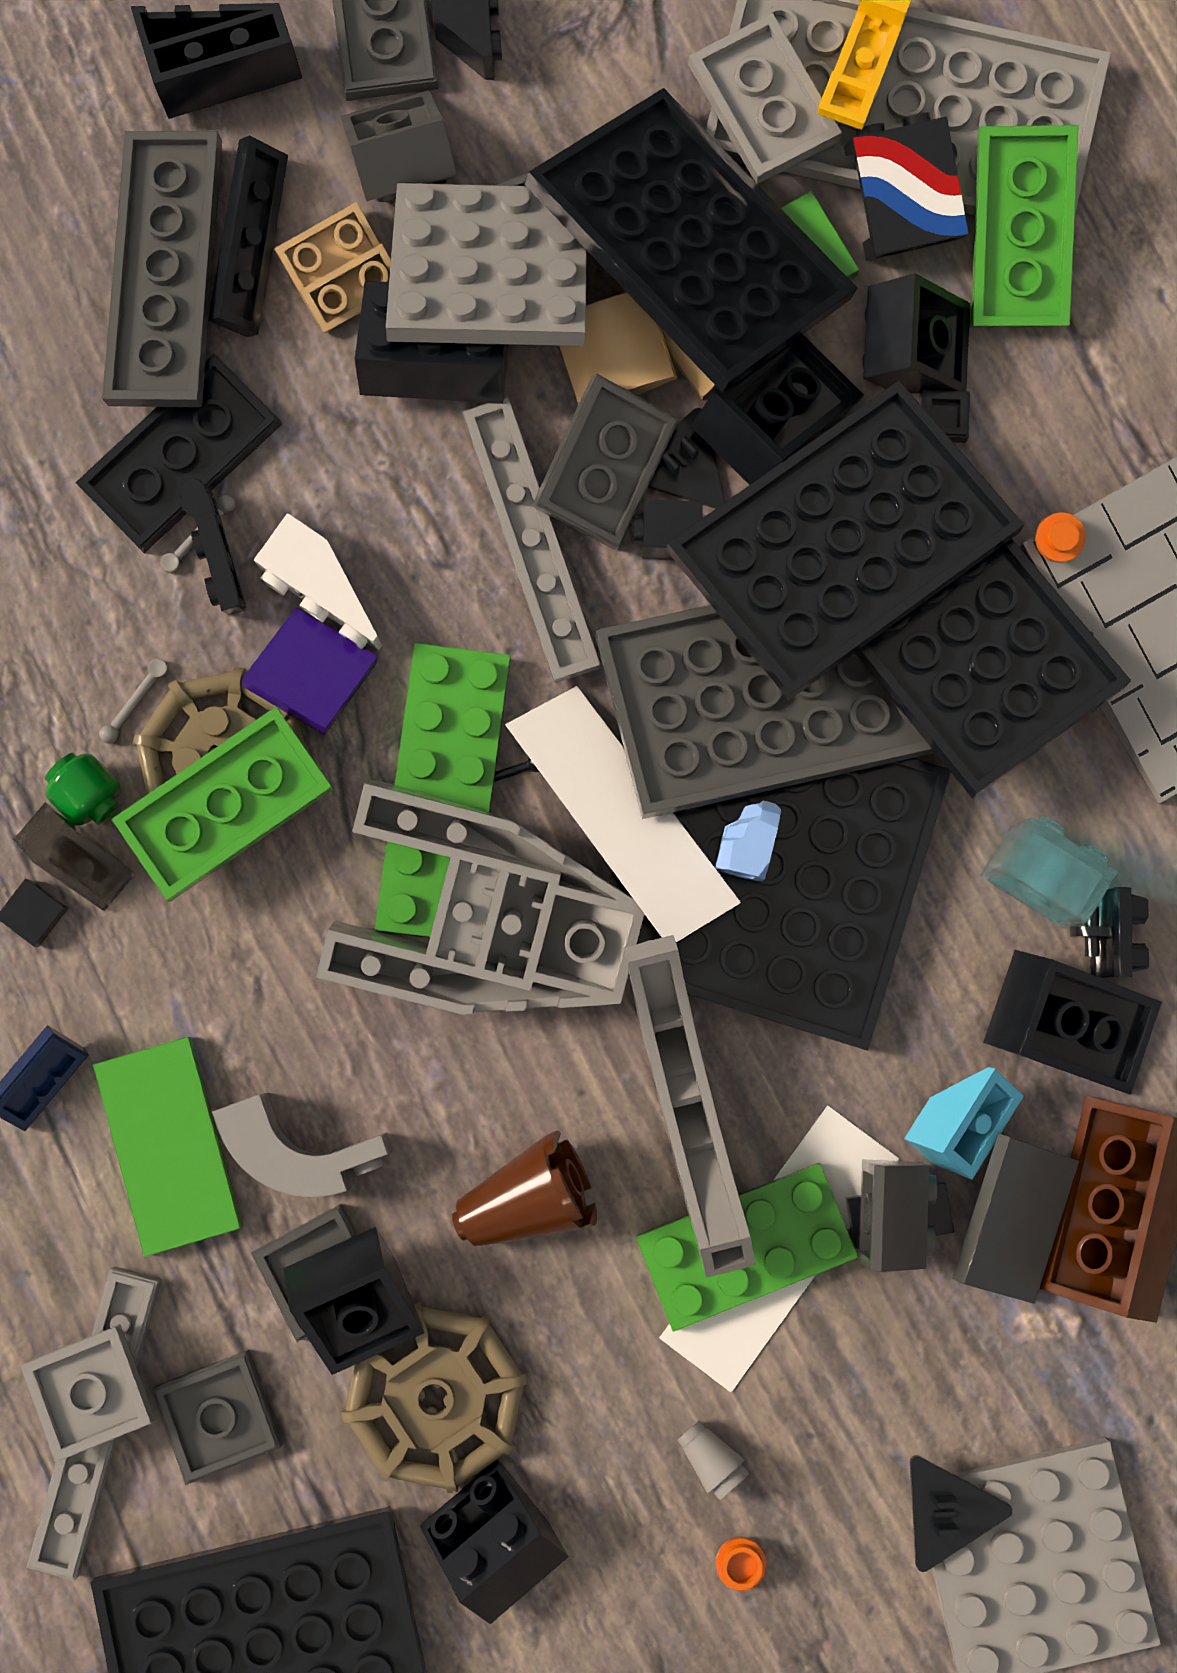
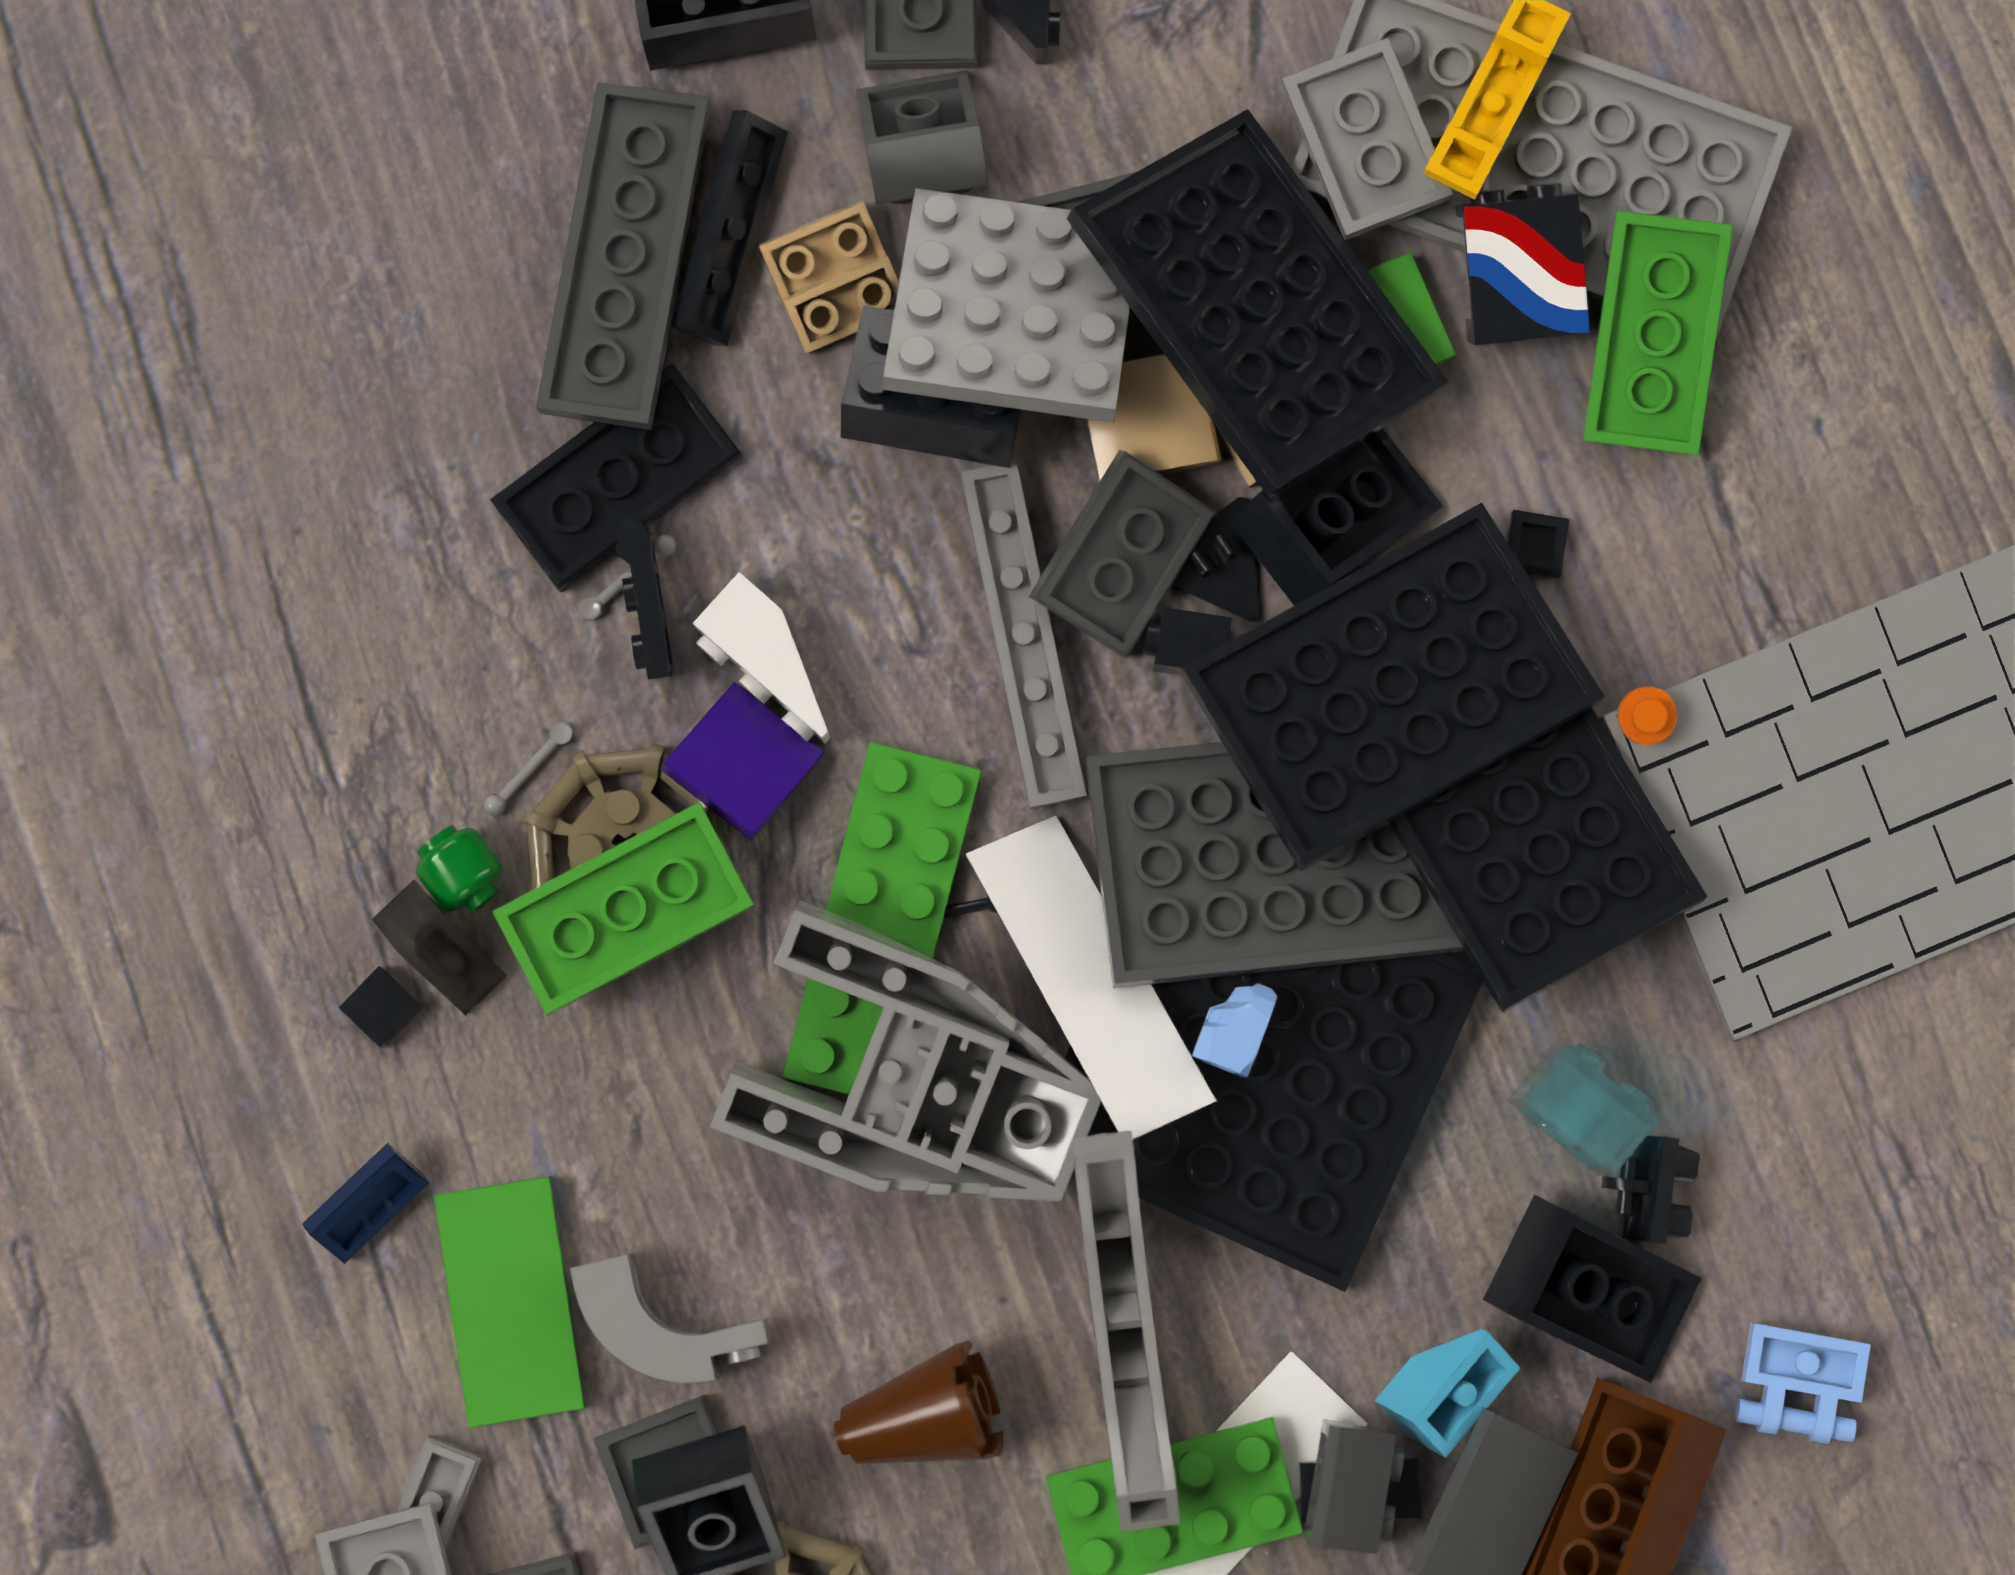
camera: 10 degrees right, 0 degrees up
(916, 336) = (1513, 447): black slope -> none

